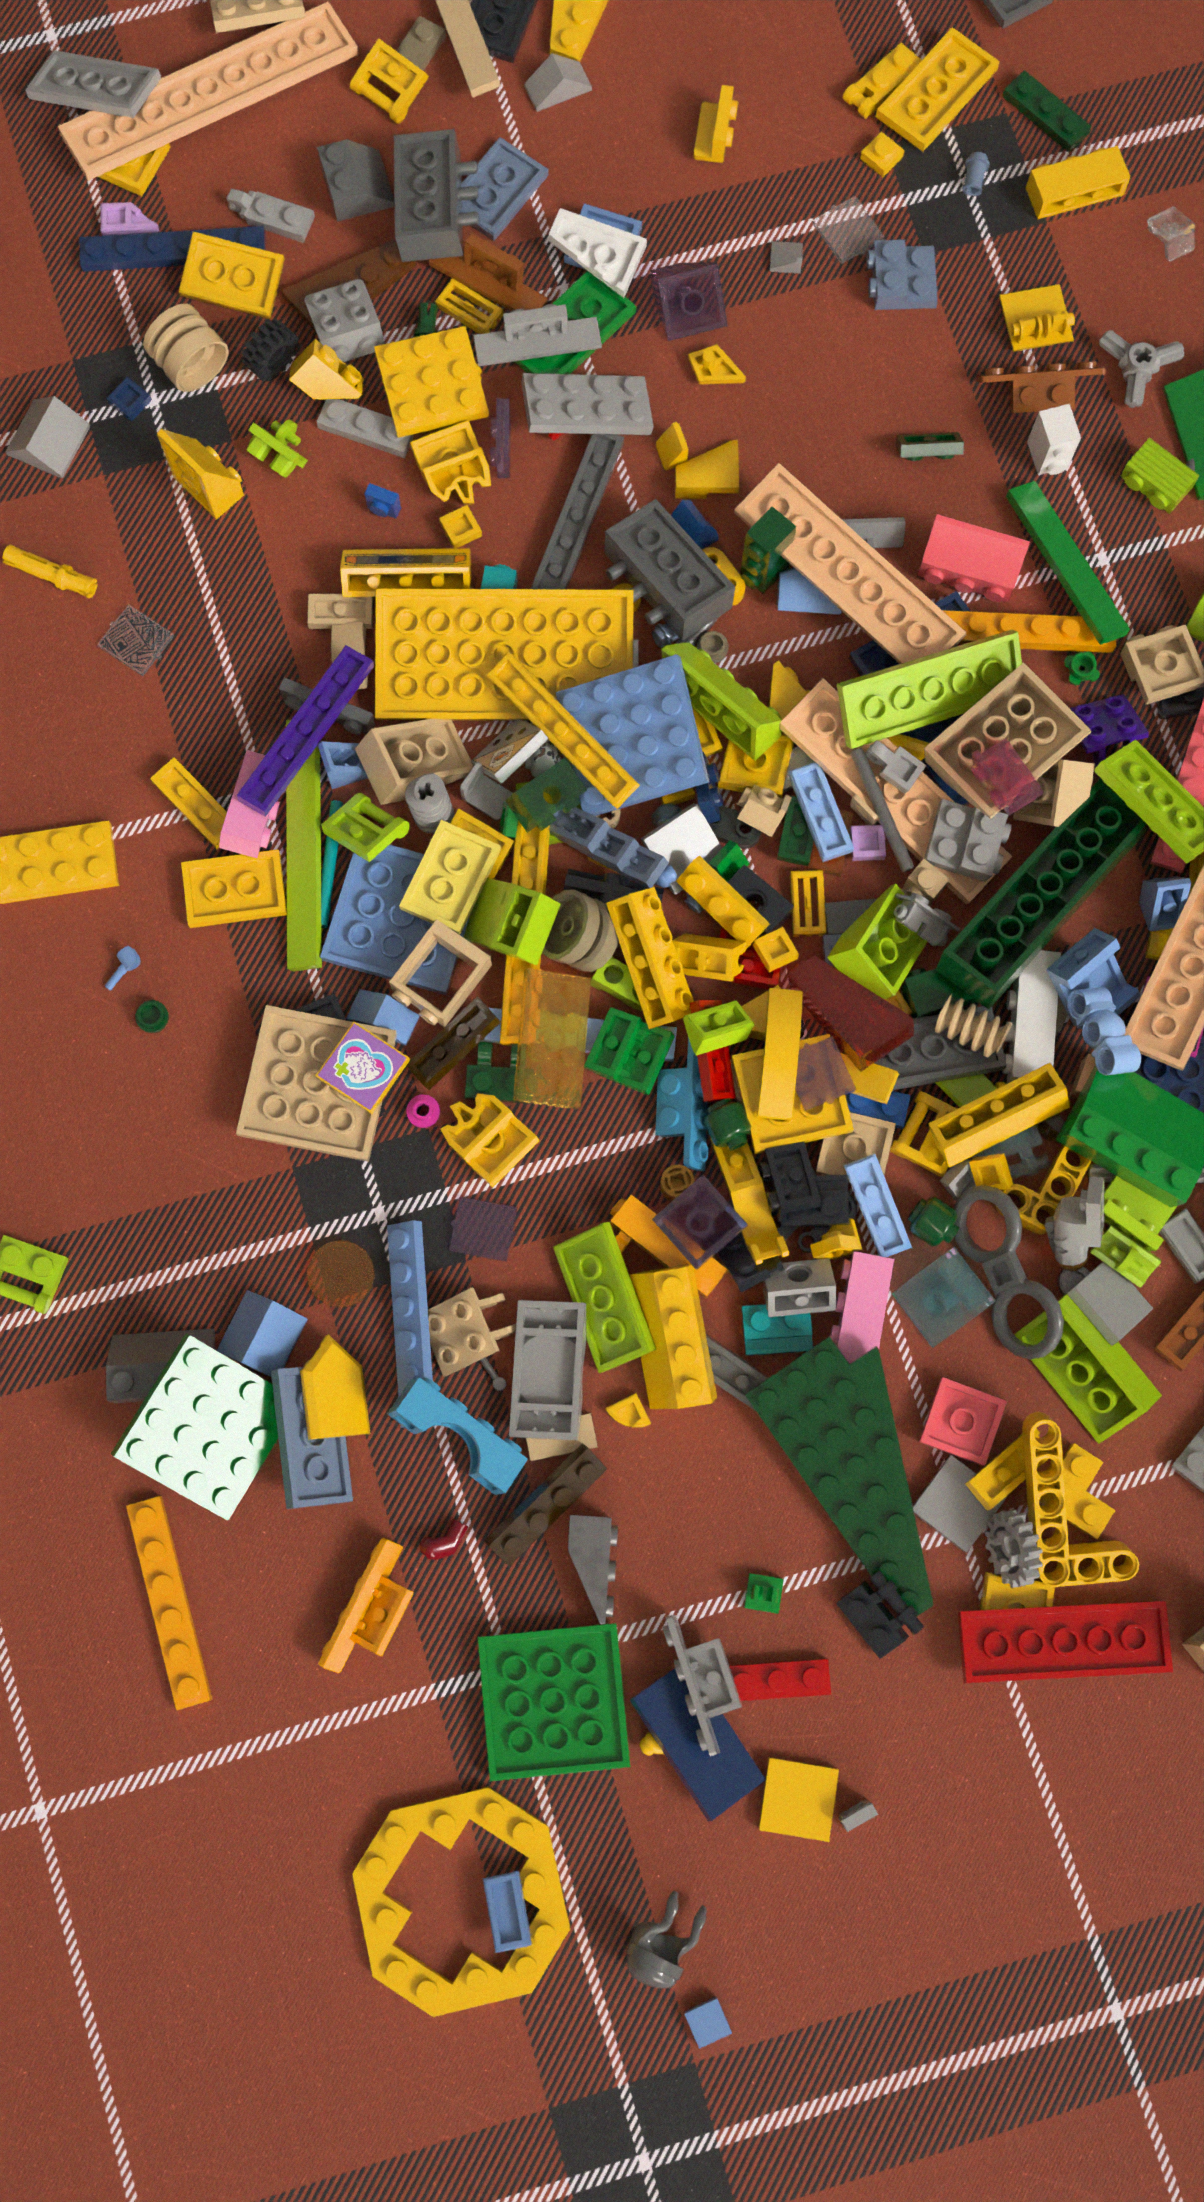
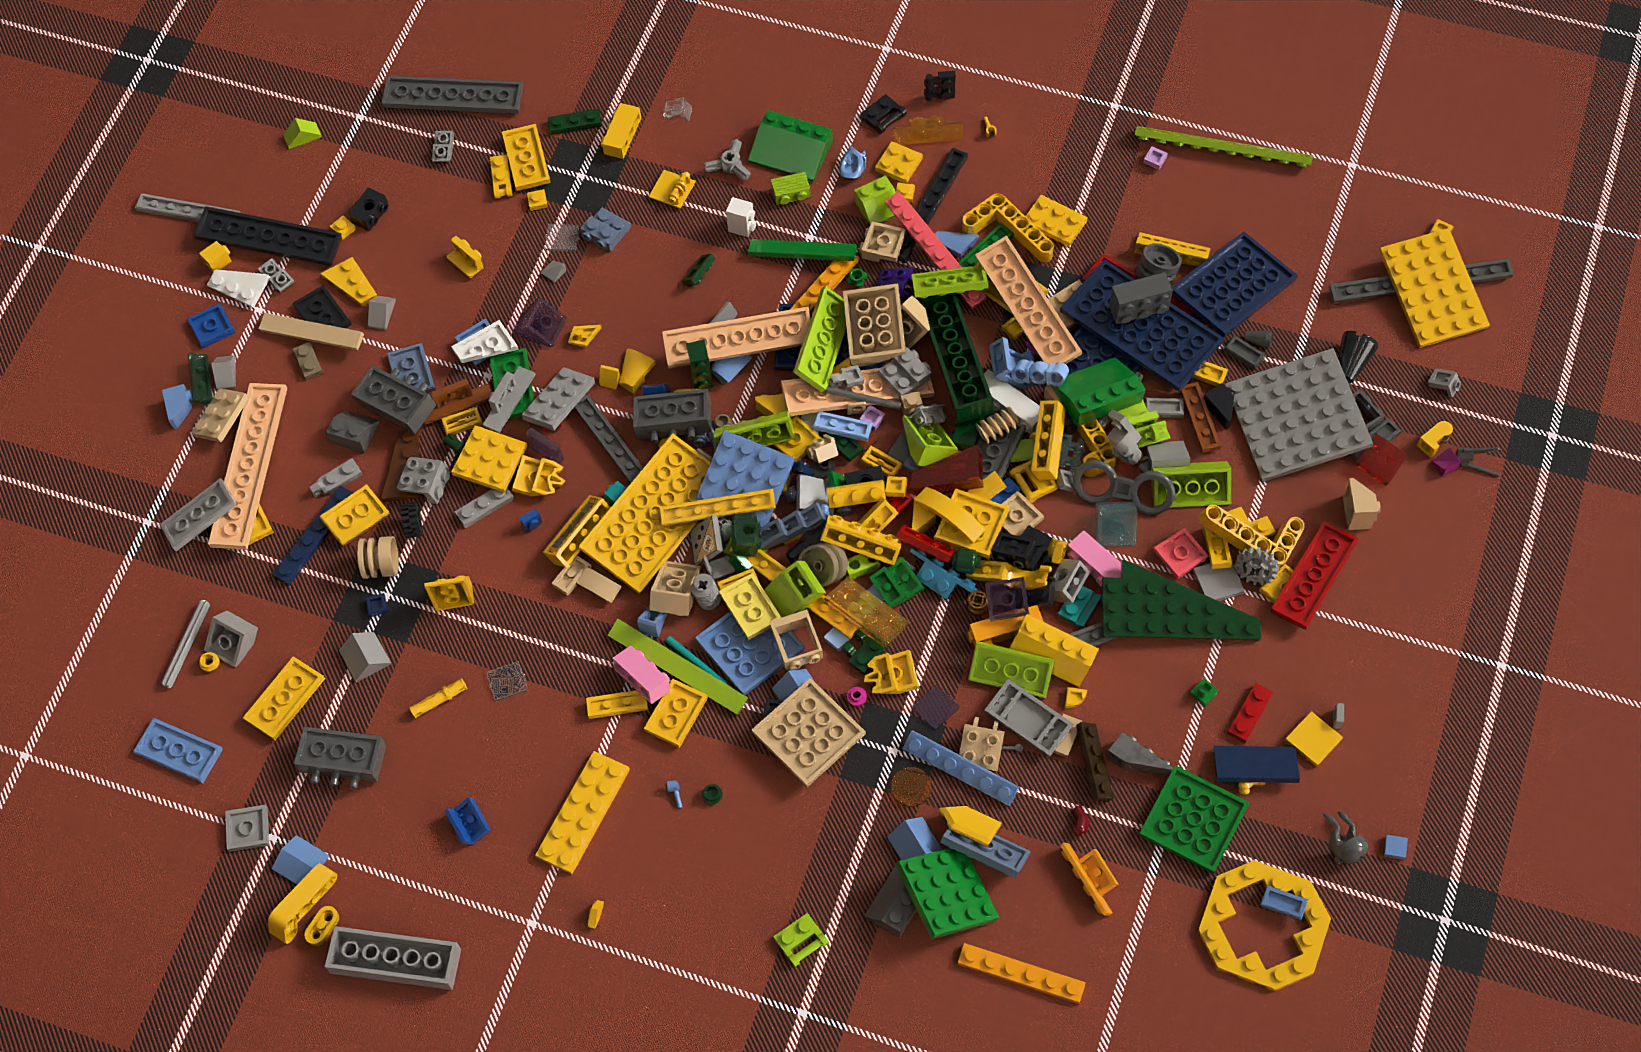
camera: 50 degrees left, 15 degrees down
(125, 219) = (279, 548): lavender tile -> none
(264, 441) = (454, 553): lime hips -> none
(305, 731) = (626, 622): dark purple plate -> none
(324, 375) = (444, 505): yellow slope -> none
(352, 718) = (616, 611): dark grey plate -> none
(361, 834) = (693, 631): lime plate -> none
(362, 1067) = (818, 703): tile -> none
(393, 71) = (314, 376): yellow plate -> none
(453, 1043) = (834, 659): dark brown plate -> none
(460, 527) = (572, 494): yellow plate -> none
(492, 1460) = (1056, 770): dark azure arch -> none
(708, 1681) = (1231, 739): light grey bracket -> none
(717, 1027) = (917, 531): lime slope -> none
(821, 1074) = (974, 502): piece -> none
(873, 1619) = (1249, 650): black plate -> none
(877, 1206) = (1052, 523): light blue tile -> none
(933, 1221) = (1076, 504): dark green head -> none
(973, 559) = (770, 286): coral slope -> none
(976, 168) = (578, 166): sand blue pin -> none
(991, 1171) = (1071, 462): yellow plate -> none
(1006, 776) = (892, 332): clear pink bracket -> none
(1041, 389) = (709, 208): dark orange bracket -> none
(1163, 901) = (996, 312): medium blue slope -> none

